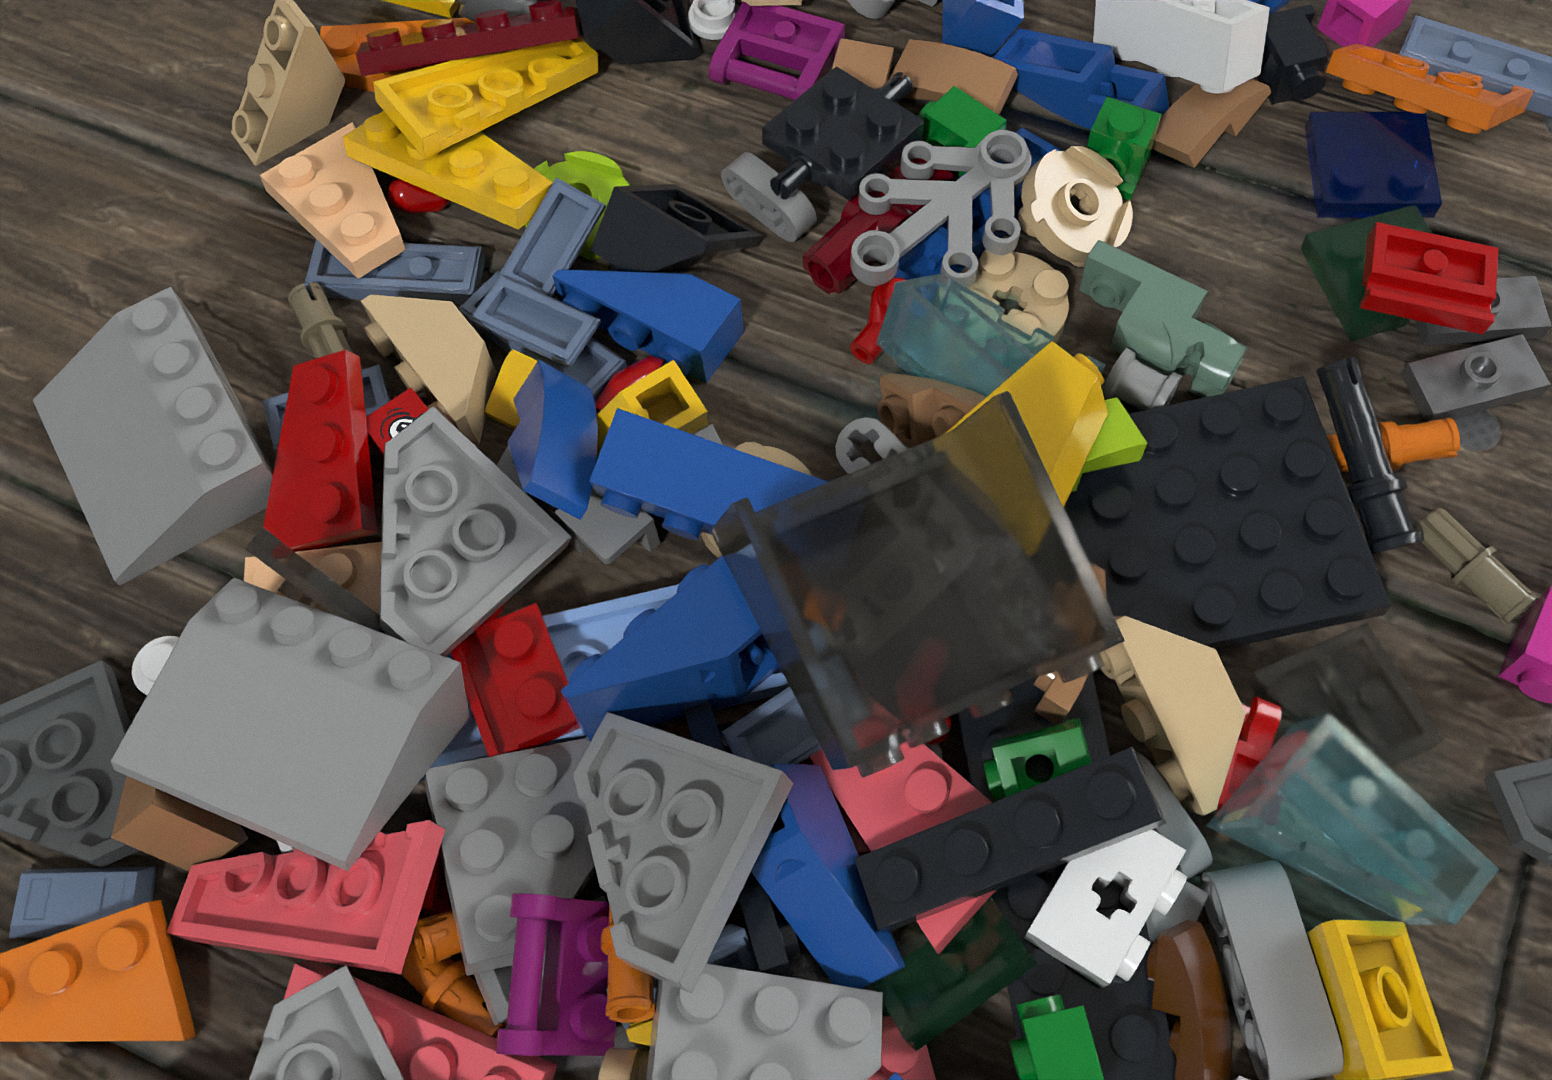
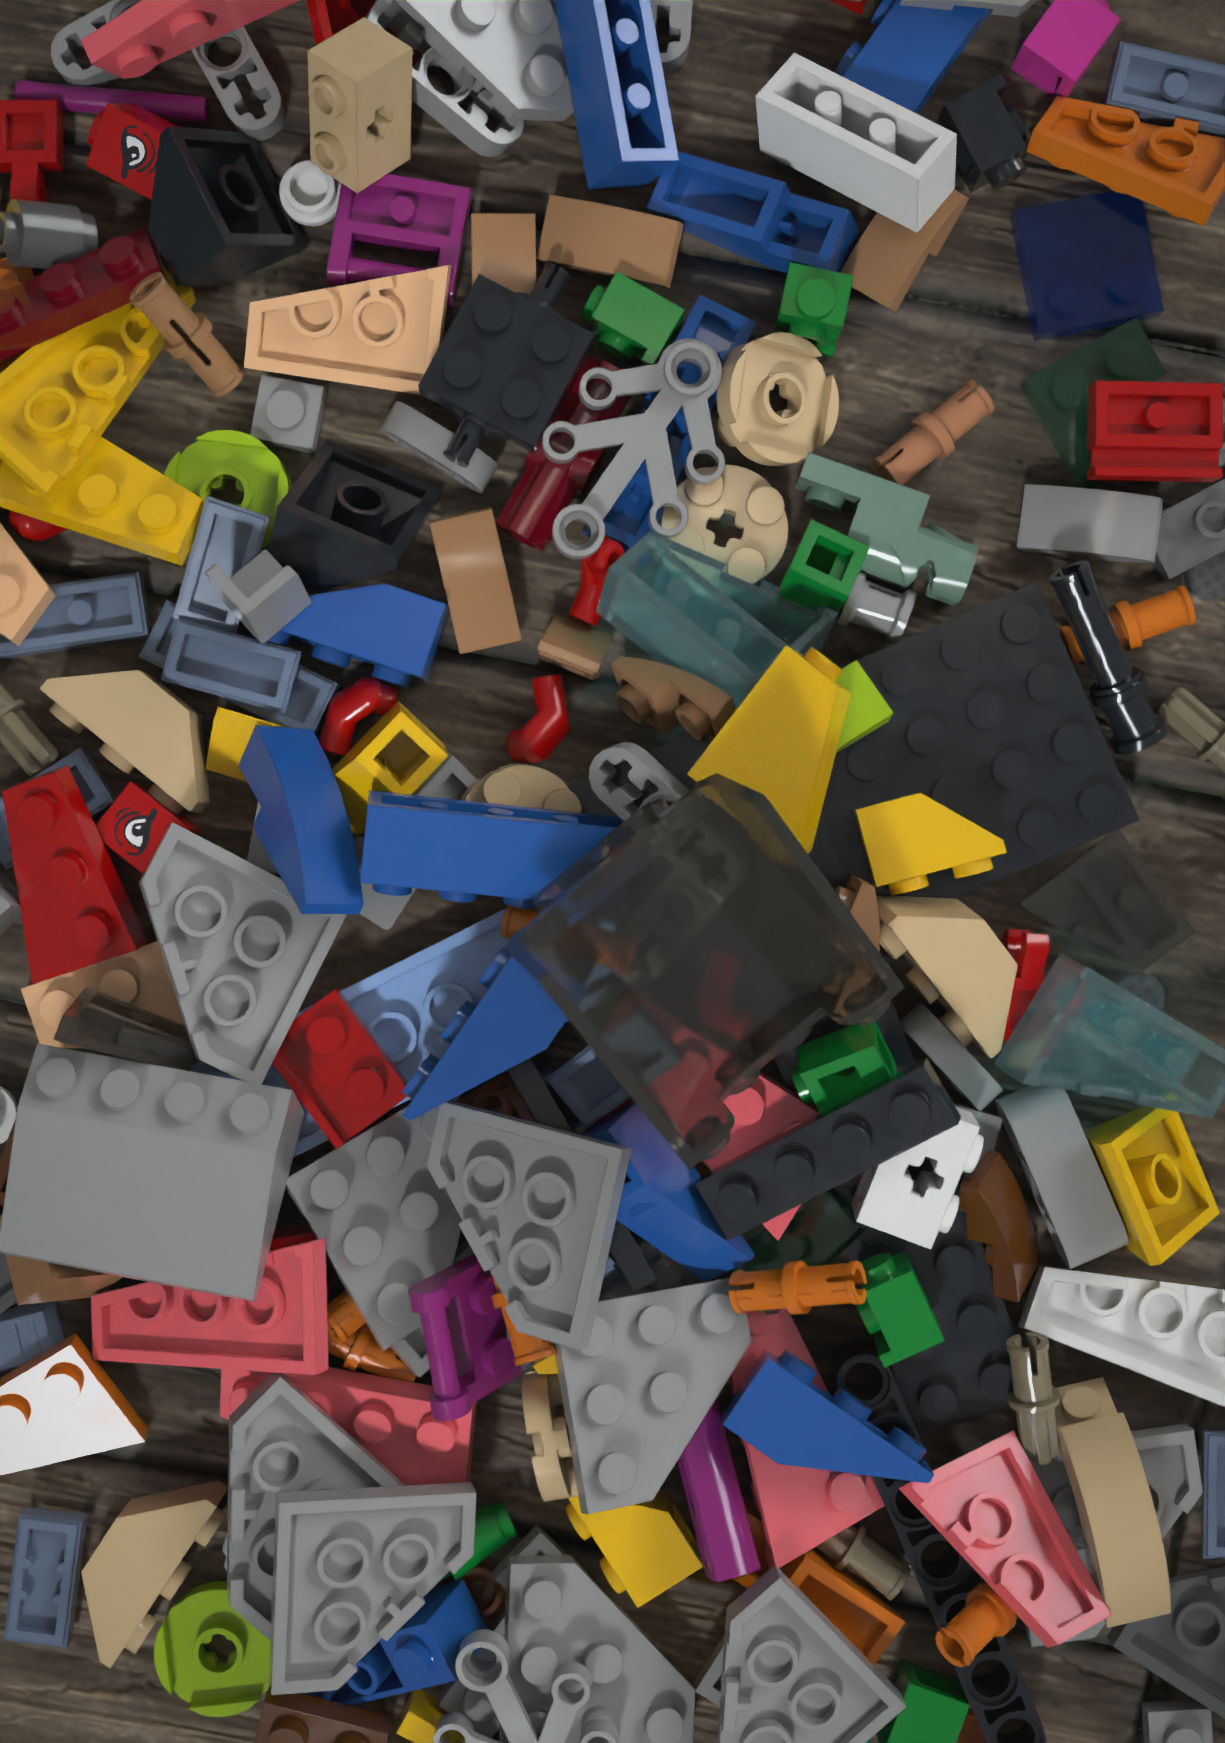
camera: 15 degrees left, 25 degrees up
(564, 39) = (163, 308): none -> medium nougat pin
(580, 253) = (261, 594): none -> light grey panel
(649, 157) = (288, 414): none -> light grey plate
(716, 105) = (353, 333): none -> light nougat wing
(772, 301) = (475, 580): none -> medium nougat slope
(809, 429) = (546, 727): none -> red arm
(845, 375) = (575, 646): none -> medium nougat slope
(948, 1001) = (798, 1287): none -> orange pin
(1096, 327) = (823, 568): none -> green brick
(1163, 565) = (919, 837): none -> yellow slope
(1219, 260) = (934, 434): none -> nougat pin
(1388, 356) = (1090, 523): none -> light grey slope

